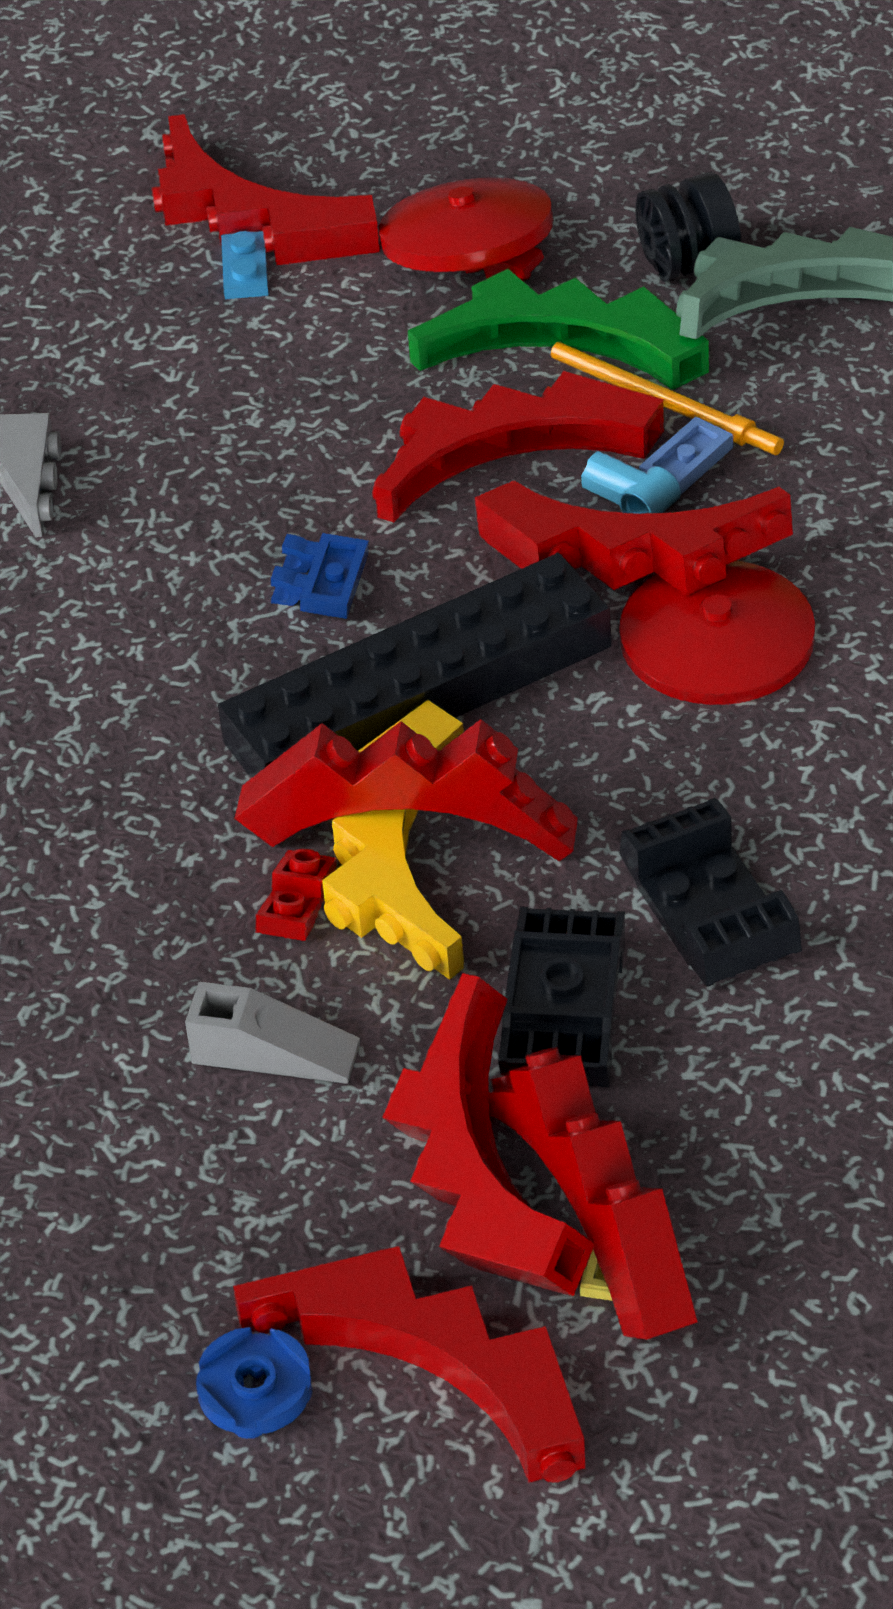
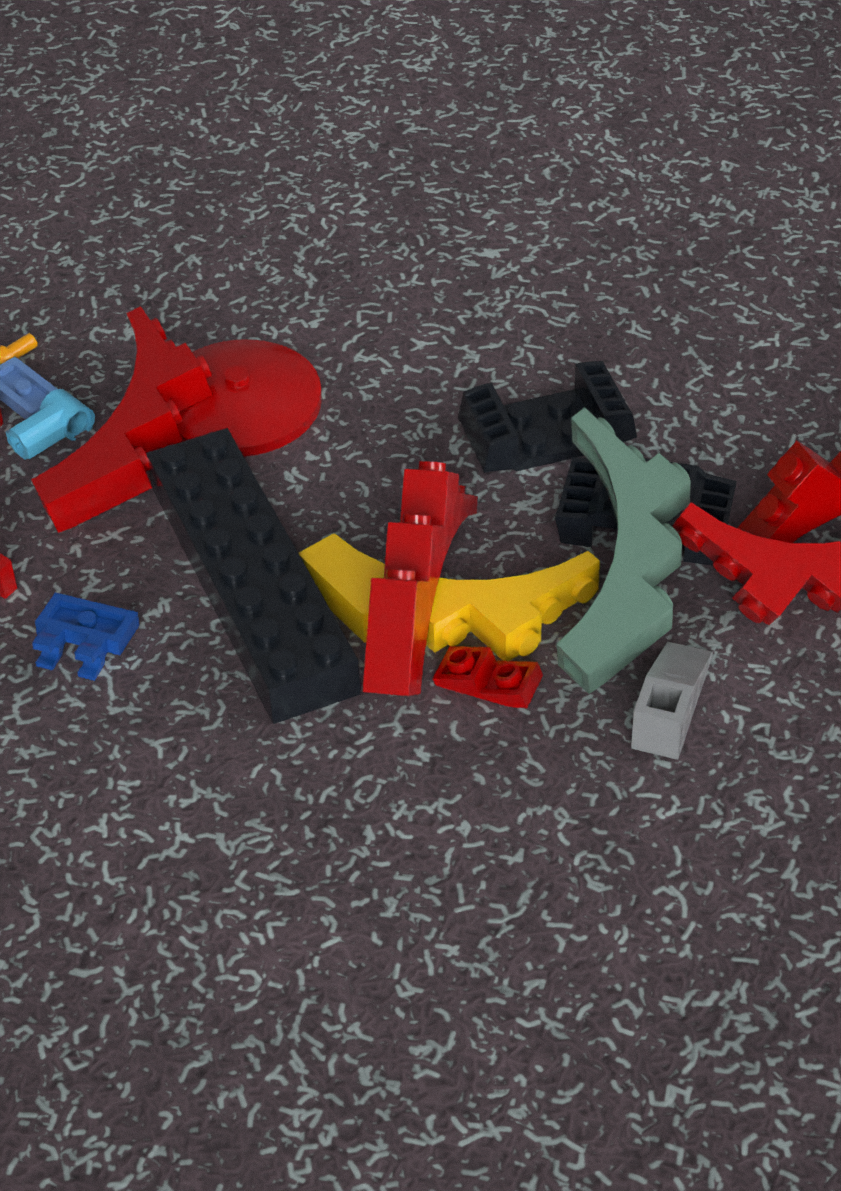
camera: 85 degrees left, 0 degrees up
(511, 951) = (630, 607): none -> sand green arch

